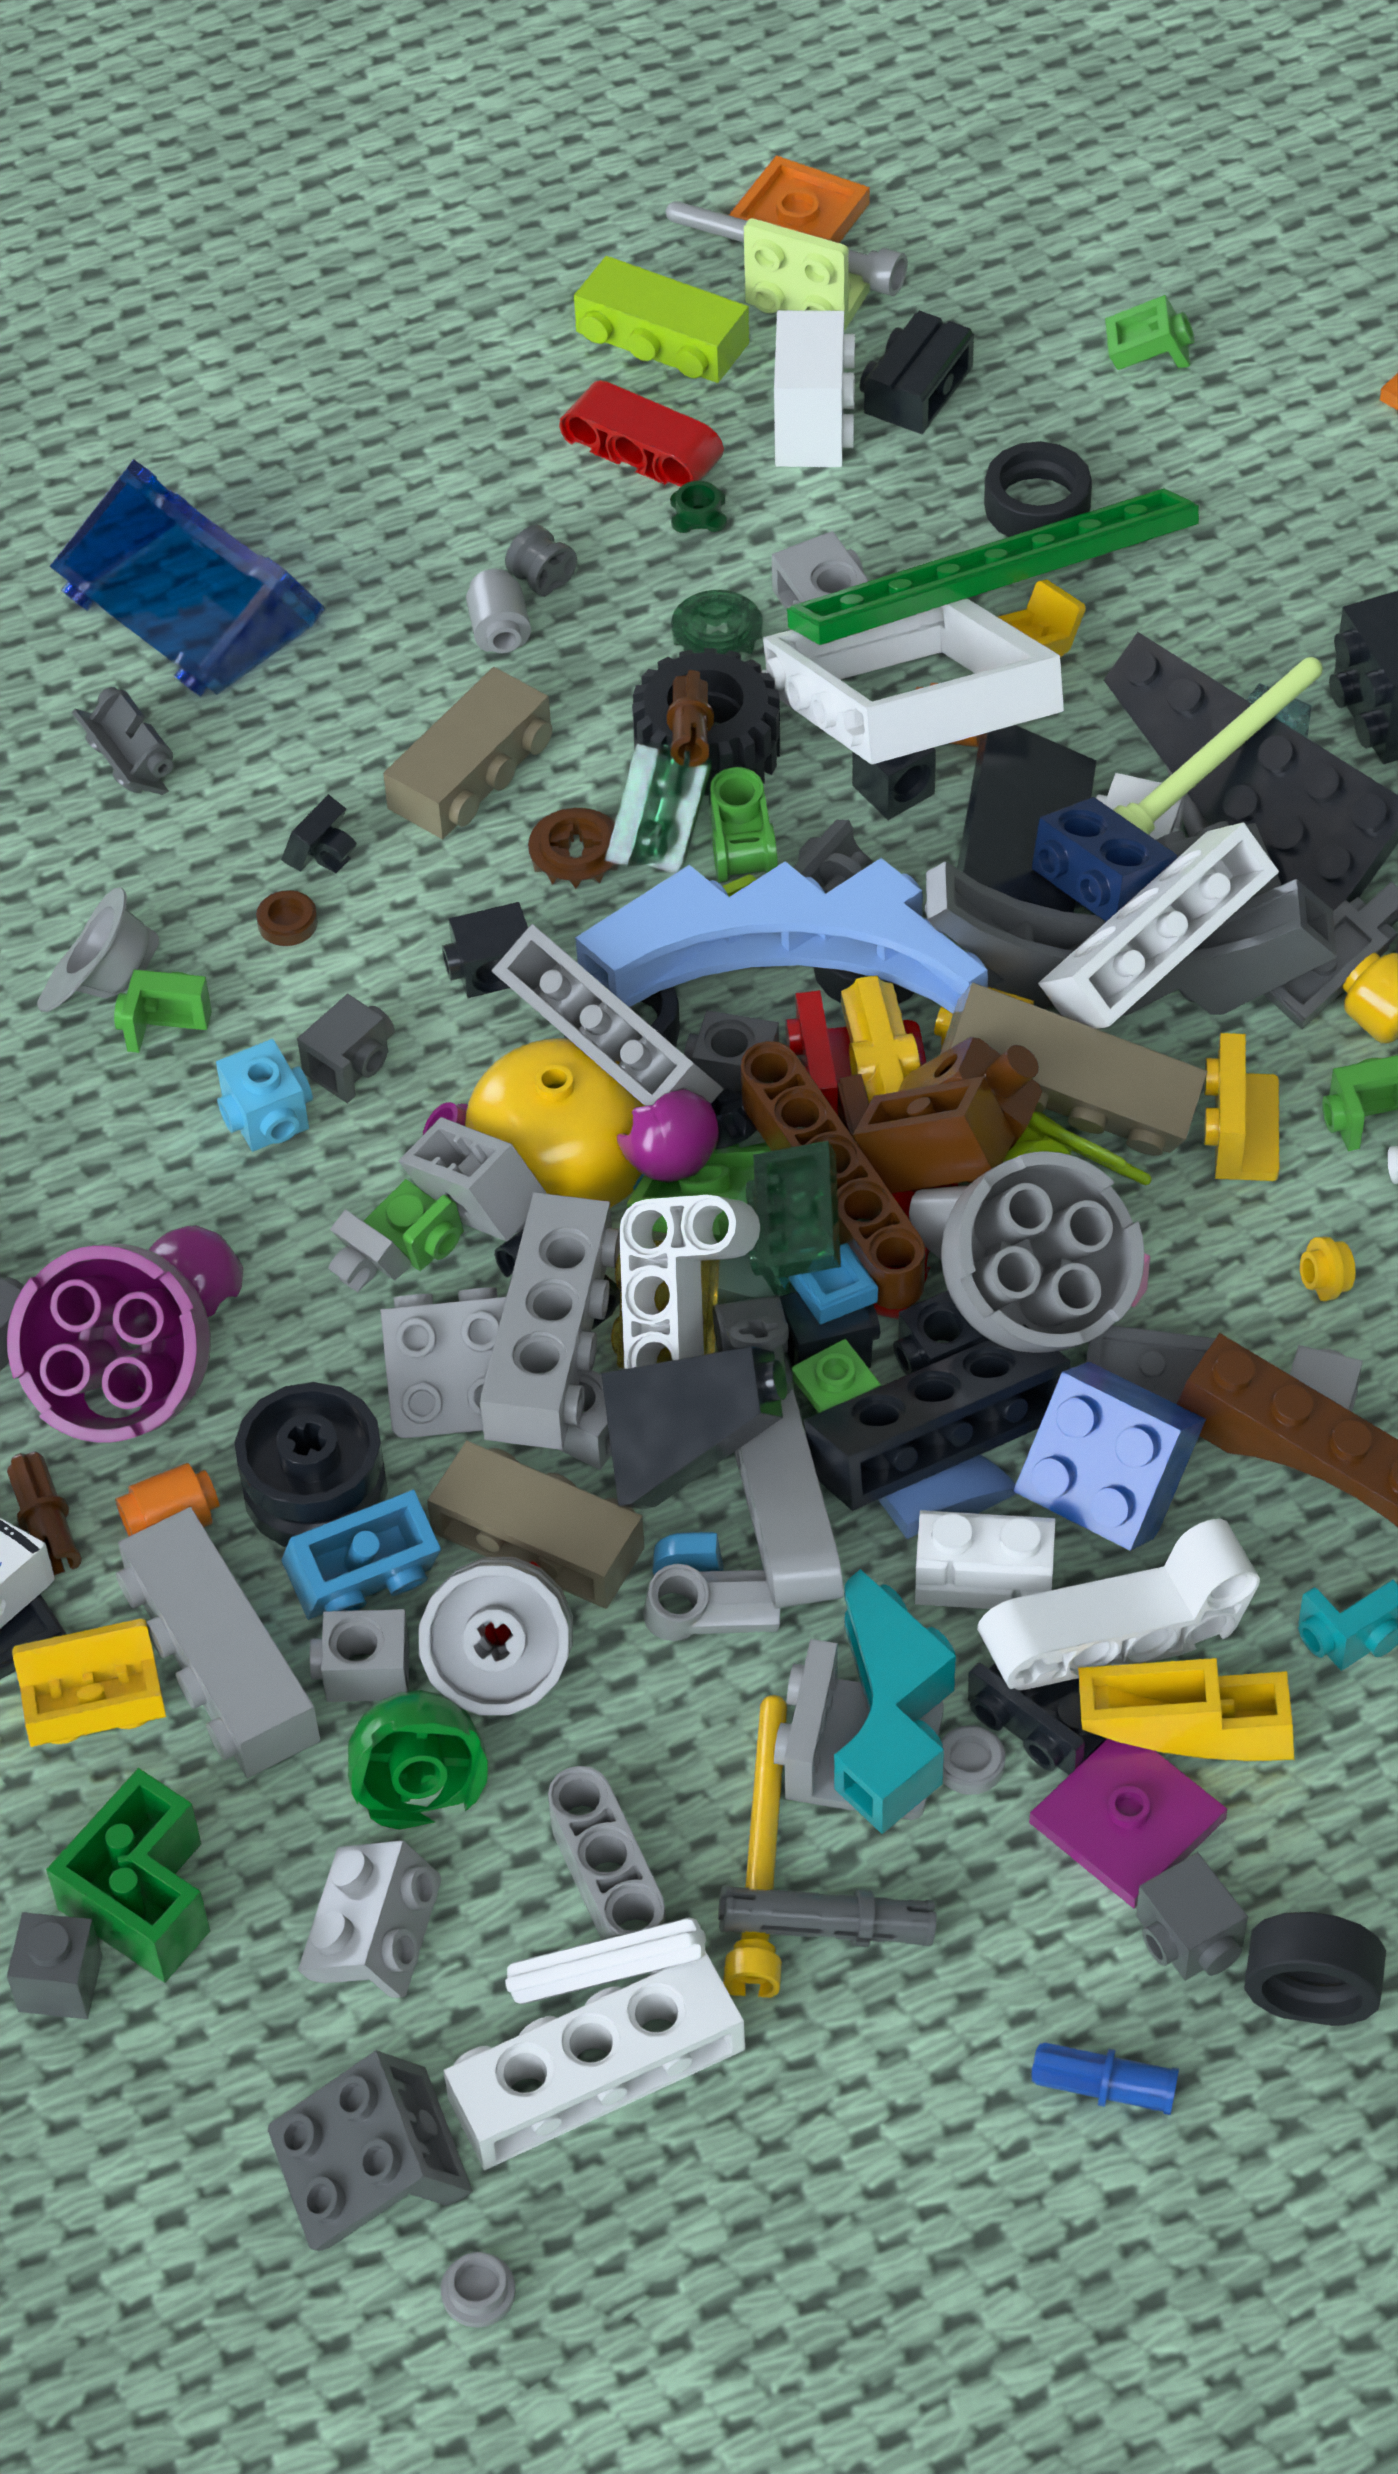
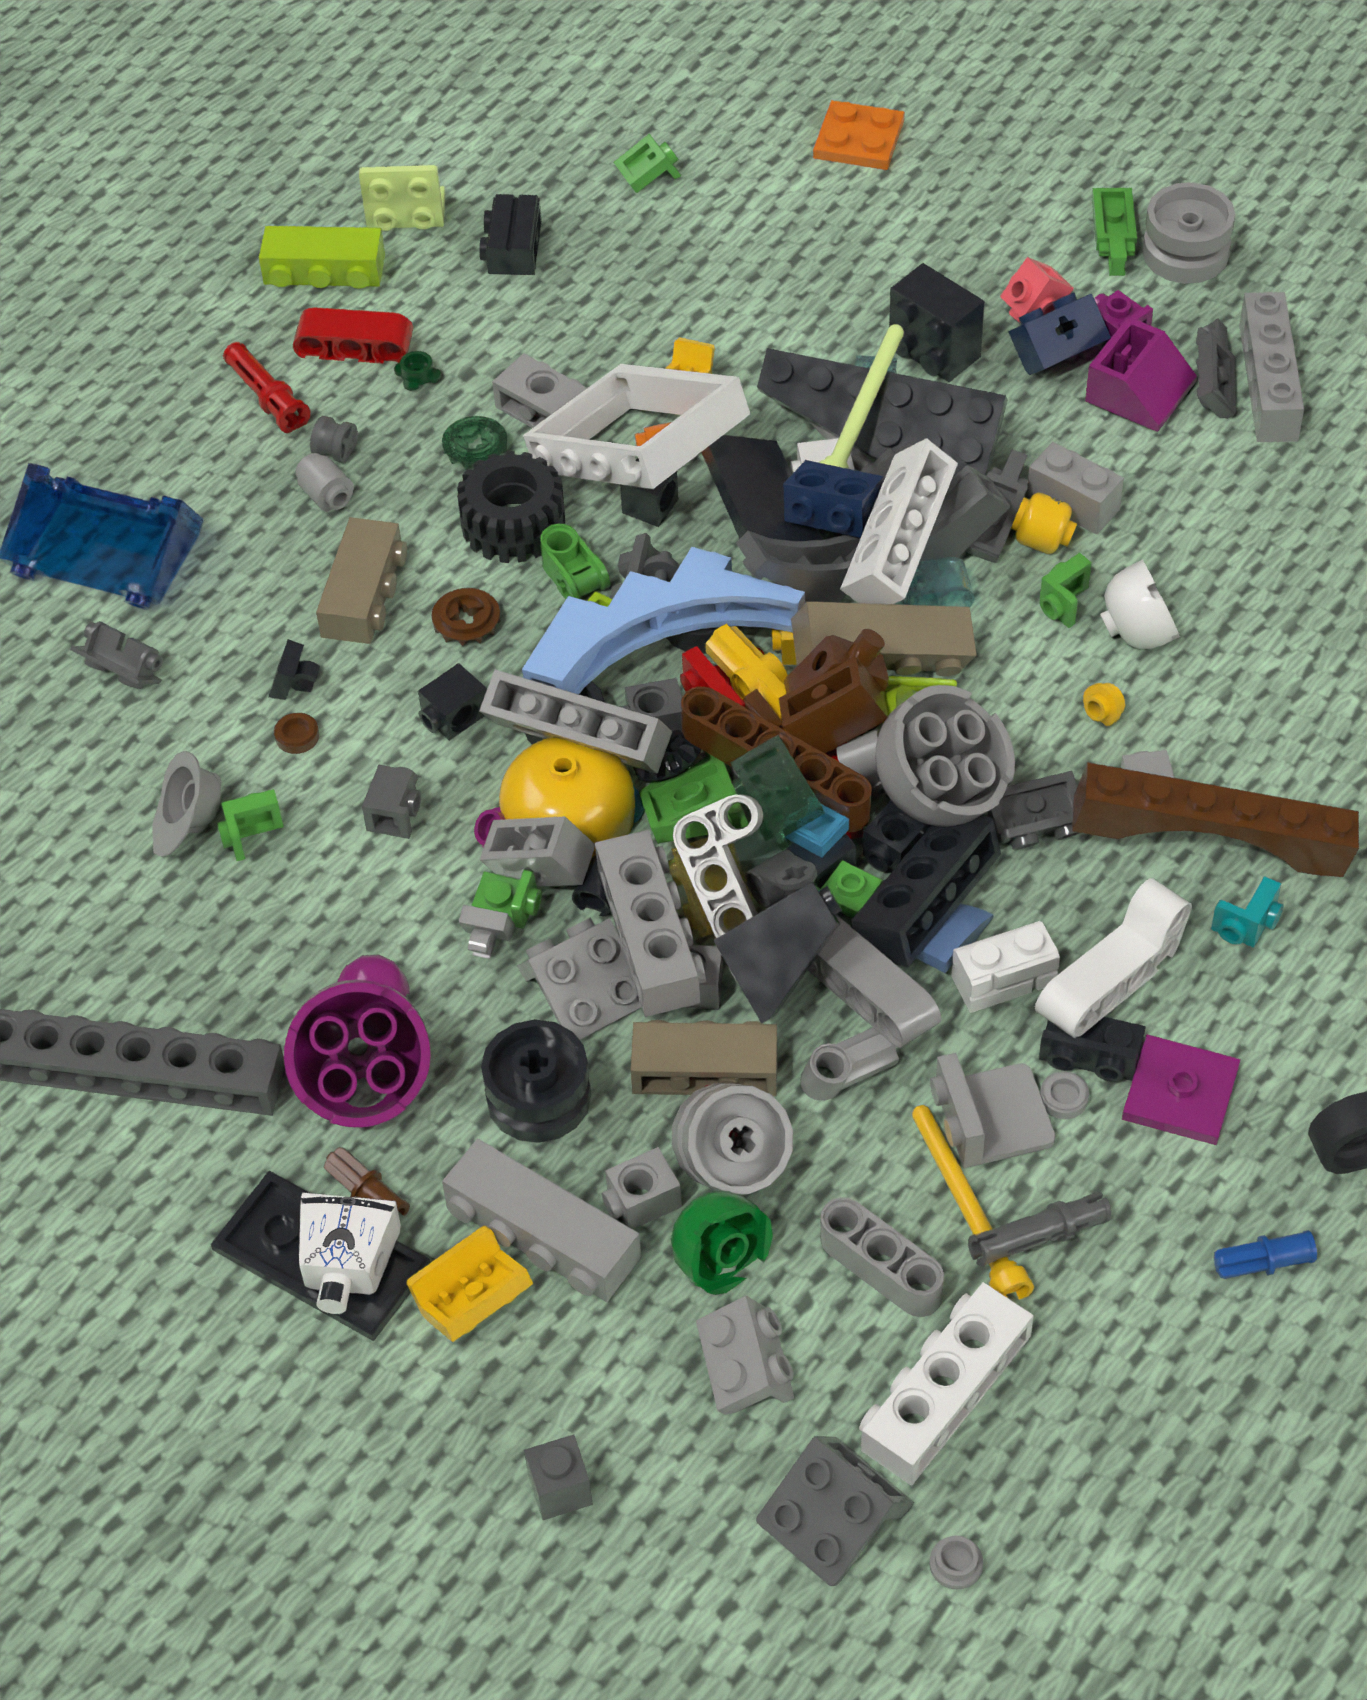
camera: 25 degrees left, 0 degrees up
(126, 1876) = (575, 1401): green brick -> none
(165, 1496) = (447, 1145): orange brick -> none
(263, 1095) = (356, 853): medium azure brick -> none
(362, 1555) = (604, 1124): dark azure brick -> none
(501, 478) = (273, 395): none -> red pin
(606, 1961) = (921, 1316): white axle -> none
(658, 809) = (517, 569): clear green bracket -> none
(671, 1136) = (659, 775): magenta hair -> none
(690, 719) = (512, 502): reddish brown axle -> none
(694, 1549) = (812, 1036): dark azure tile -> none
(804, 200) = (366, 148): orange plate -> none
(813, 388) = (456, 266): white brick -> none
(881, 269) = (451, 177): light grey piece -> none
(903, 1676) = (997, 1057): teal arch -> none
(991, 566) = (639, 342): green tile -> none
(1035, 461) = (638, 306): black tyre -> none
(1109, 1455) = (1050, 868): brick -> none
(1189, 1022) = (940, 584): none -> clear light blue piece
(1189, 1709) = (1186, 1006): yellow slope -> none
(1191, 1919) = (1262, 1135): dark grey brick -> none
(1244, 1115) = (997, 628): yellow bracket -> none

